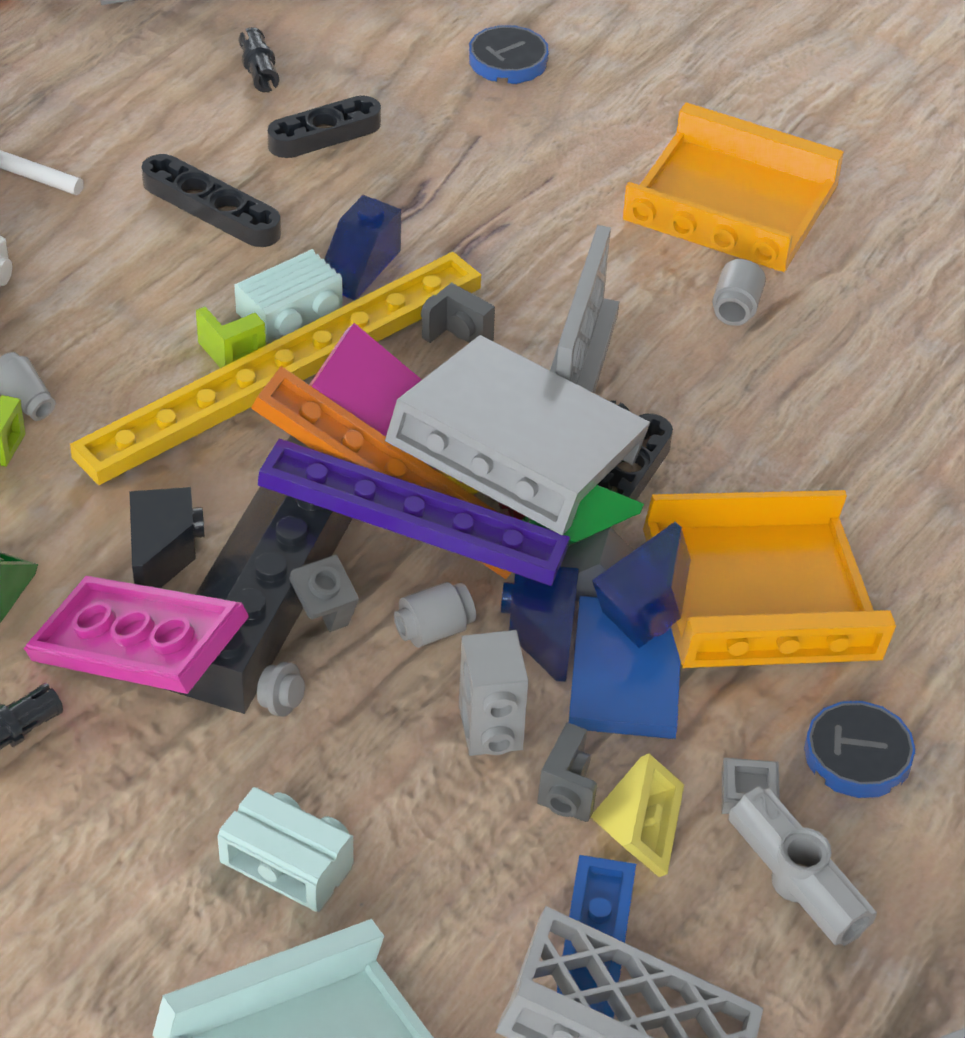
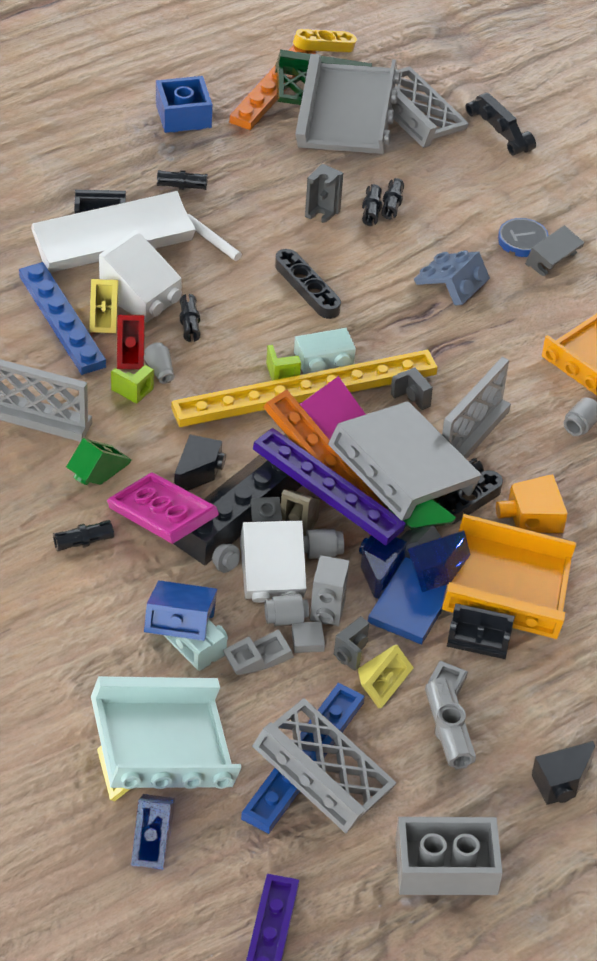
camera: 20 degrees right, 0 degrees up
(41, 301) = (189, 318): none -> black pin
(181, 55) = (324, 193): none -> dark grey hinge
(251, 812) = (180, 610): none -> blue panel
(286, 43) = (392, 198): none -> black pin
(299, 135) = (368, 255): black beam -> none
(364, 244) = (379, 332): clear blue slope -> none
(368, 670) = (272, 559): none -> white slope
(375, 574) = (300, 507): none -> dark tan slope
(413, 847) = (258, 655): none -> light grey slope
(427, 750) = (286, 609): none -> light grey brick
(444, 119) = (460, 271): none -> sand blue bracket
(483, 787) = (308, 637): none -> light grey tile
(566, 60) = (553, 250): none -> hinge
(743, 450) = (535, 506): none -> light orange torso
(765, 685) = (480, 631): none -> black hinge
(859, 748) = (516, 678): black tile -> none

